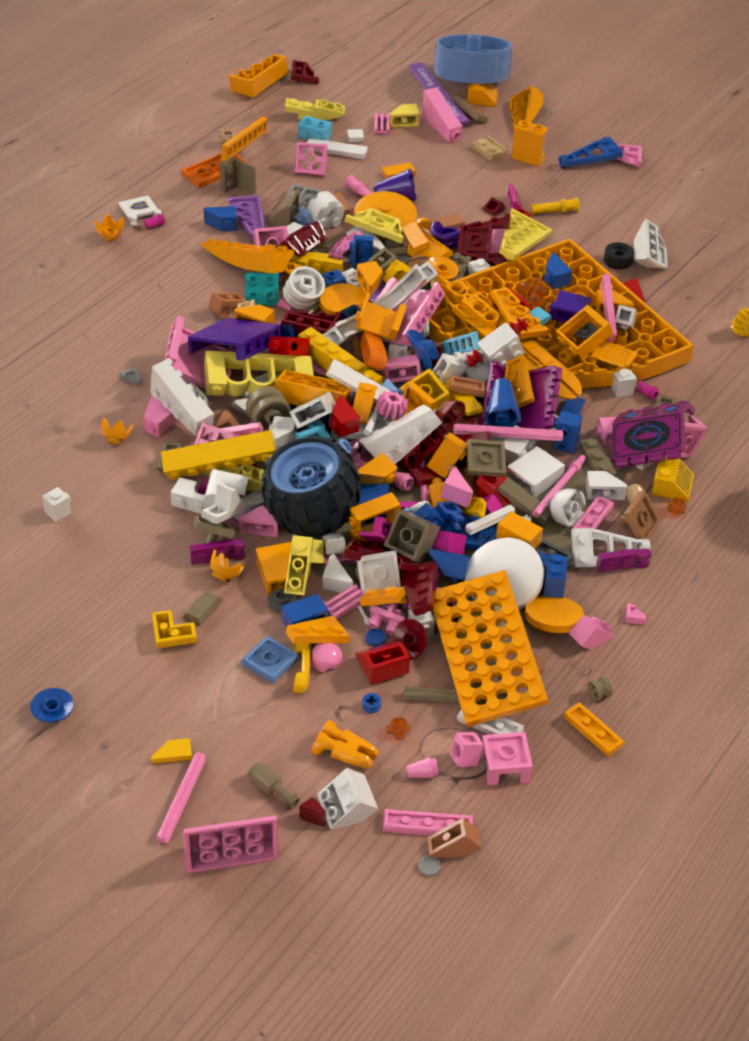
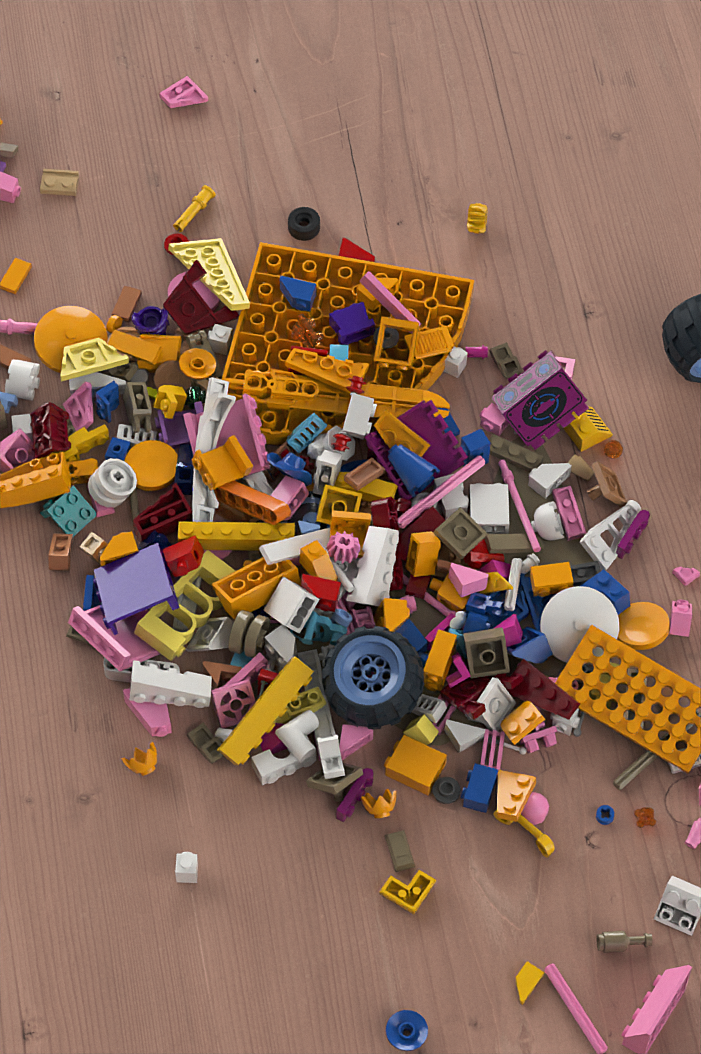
camera: 45 degrees left, 15 degrees up
(131, 376) = (76, 695): light grey tile -> none
(270, 659) = (498, 846): medium blue tile -> none
(299, 565) = (441, 753): light yellow slope -> none
(312, 812) = (672, 934): dark red slope -> none
(347, 748) = (633, 865): light orange piece -> none
(369, 276) = (157, 427): light orange slope -> none
(375, 637) = (543, 758): blue piece -> none
(384, 661) = (576, 773): red slope -> none
(400, 183) = (46, 297): dark purple cone -> none
(406, 631) = (579, 747): dark red dish -> none
(494, 206) = (142, 251): dark red slope -> none
(514, 198) = (151, 229): dark pink slope -> none
(526, 104) = (39, 108): light orange wedge -> none
(529, 143) = (101, 153): light orange panel -> none
(605, 145) = (163, 101): blue plate -> none
(625, 317) = (407, 296): white brick -> none
(650, 247) = (321, 195): white wedge -> none

